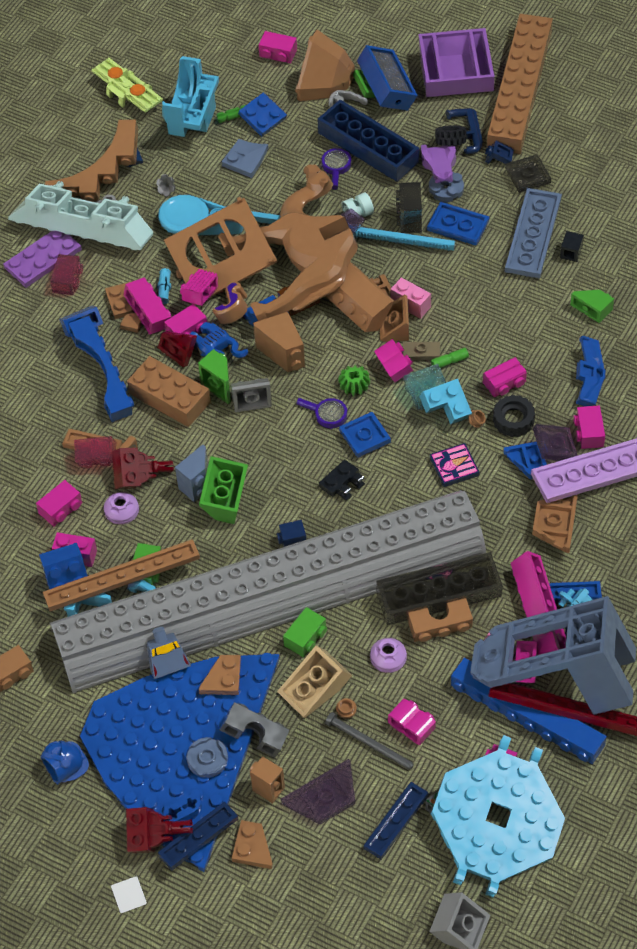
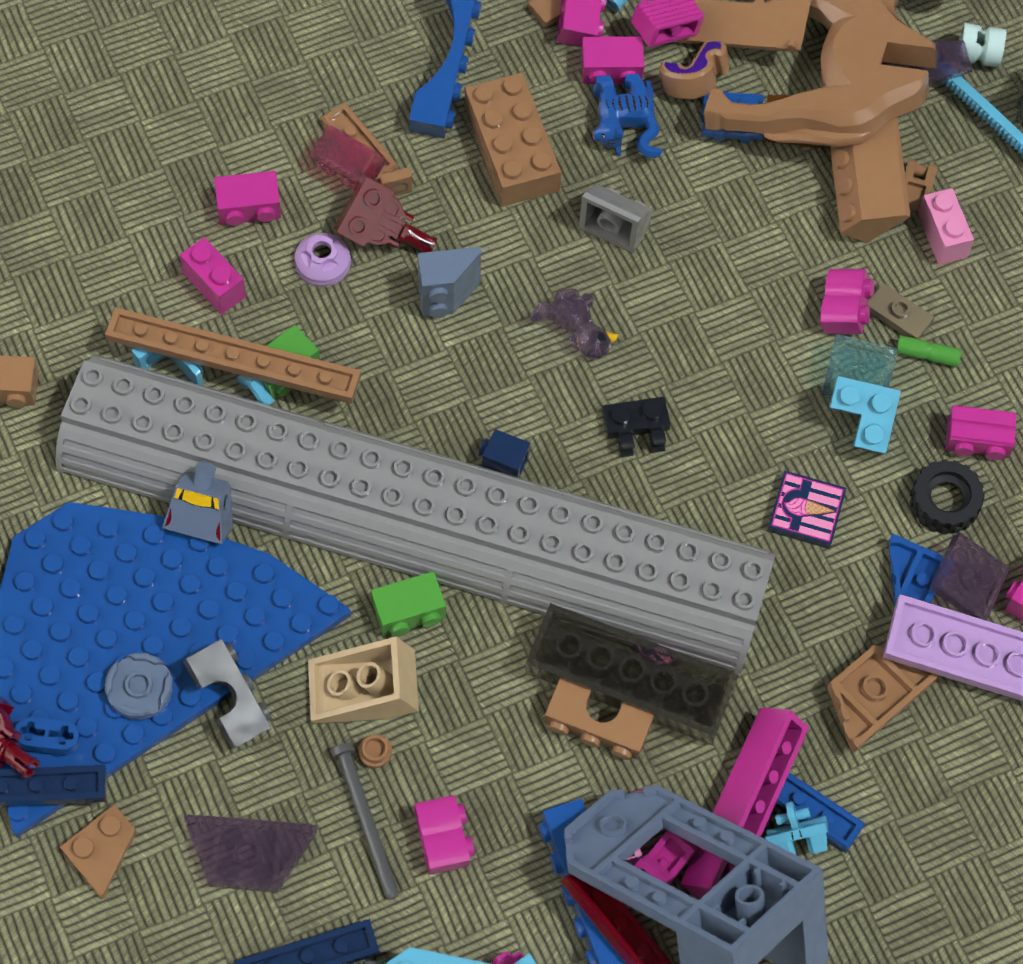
camera: 30 degrees right, 10 degrees up
(63, 565) = (172, 290): blue brick -> none
(177, 346) = (573, 83): dark red wing -> none
(215, 375) = (589, 155): bright green slope -> none
(223, 489) = (464, 326): bright green slope -> none
(223, 677) = (251, 590): medium nougat wing -> none
(267, 779) = (184, 775): medium nougat brick -> none
(270, 451) = (574, 315): none -> clear purple animal
(280, 341) = (712, 168): medium nougat slope -> none
(329, 412) = (700, 315): piece -> none
(354, 380) = (770, 292): bright green gear -> none
(364, 434) = (720, 380): blue plate -> none
(388, 662) = (493, 731): lavender piece -> none
(396, 322) = (898, 248): medium nougat slope -> none
(477, 418) = (897, 467): medium nougat plate -> none

